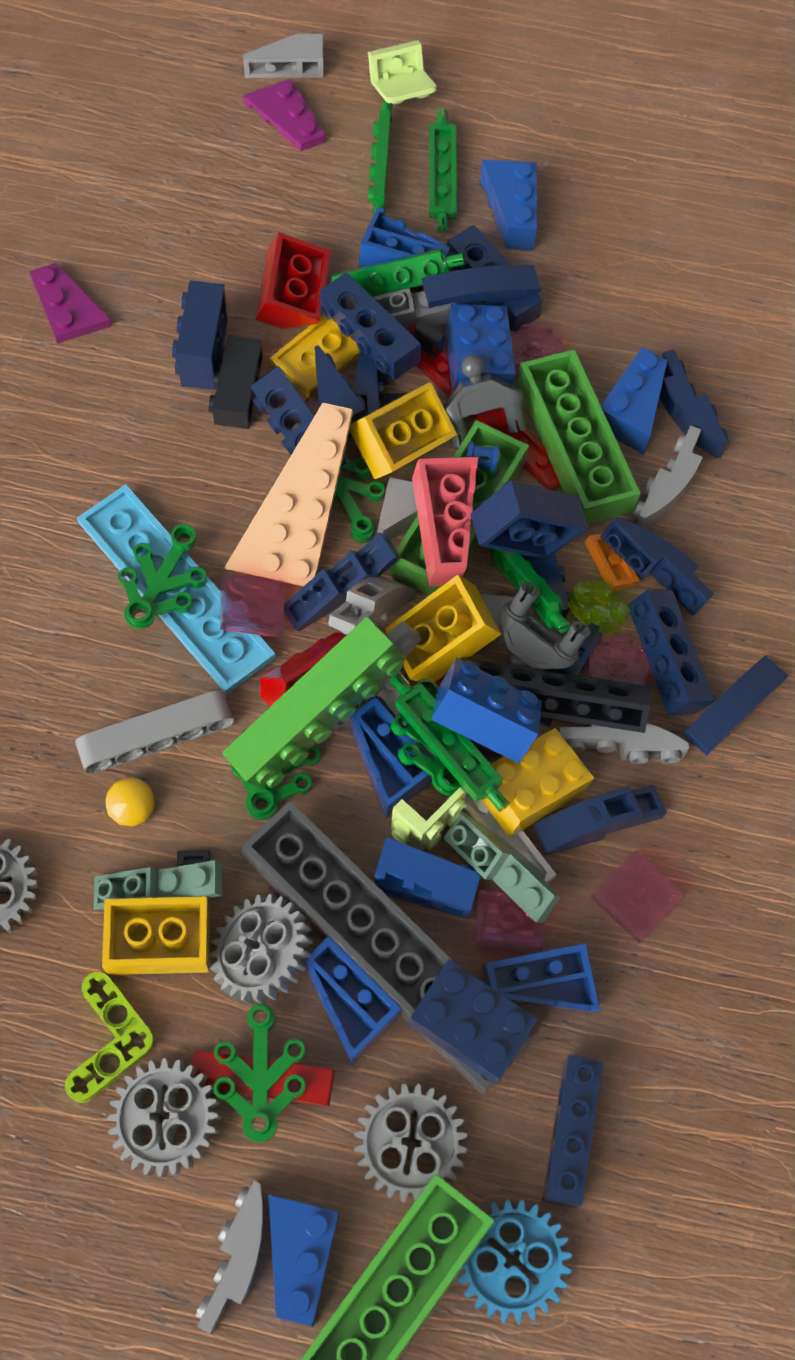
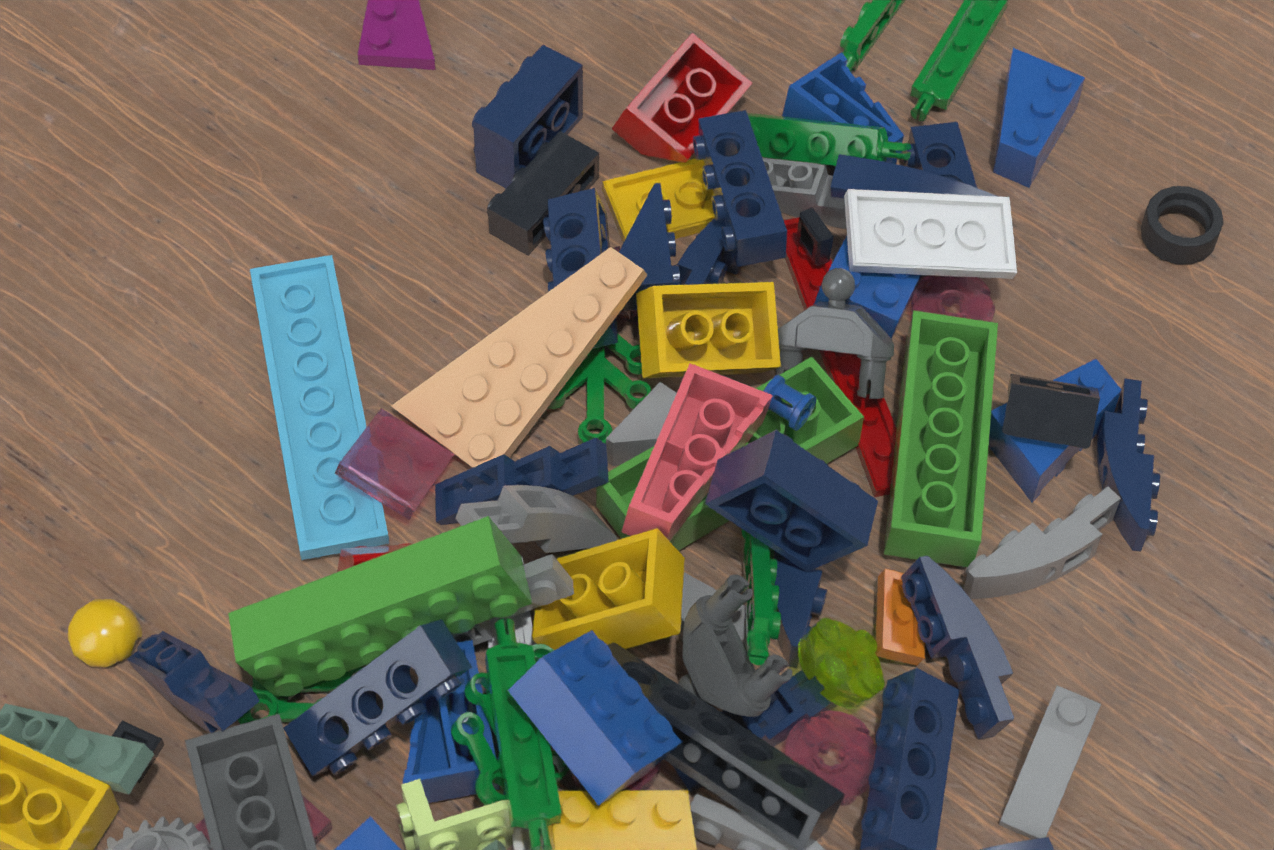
camera: 30 degrees right, 10 degrees down
(154, 731) = (183, 562): light grey beam -> none
(160, 581) = (299, 384): green plant -> none
(213, 807) = (191, 683): none -> dark blue slope
(365, 718) = (319, 730): none -> dark blue brick
(505, 308) = (930, 234): none -> white tile
(639, 220) = (1188, 202): none -> black tyre
(639, 392) = (1050, 411): none -> black panel
(744, 610) = (1049, 764): none -> light grey slope

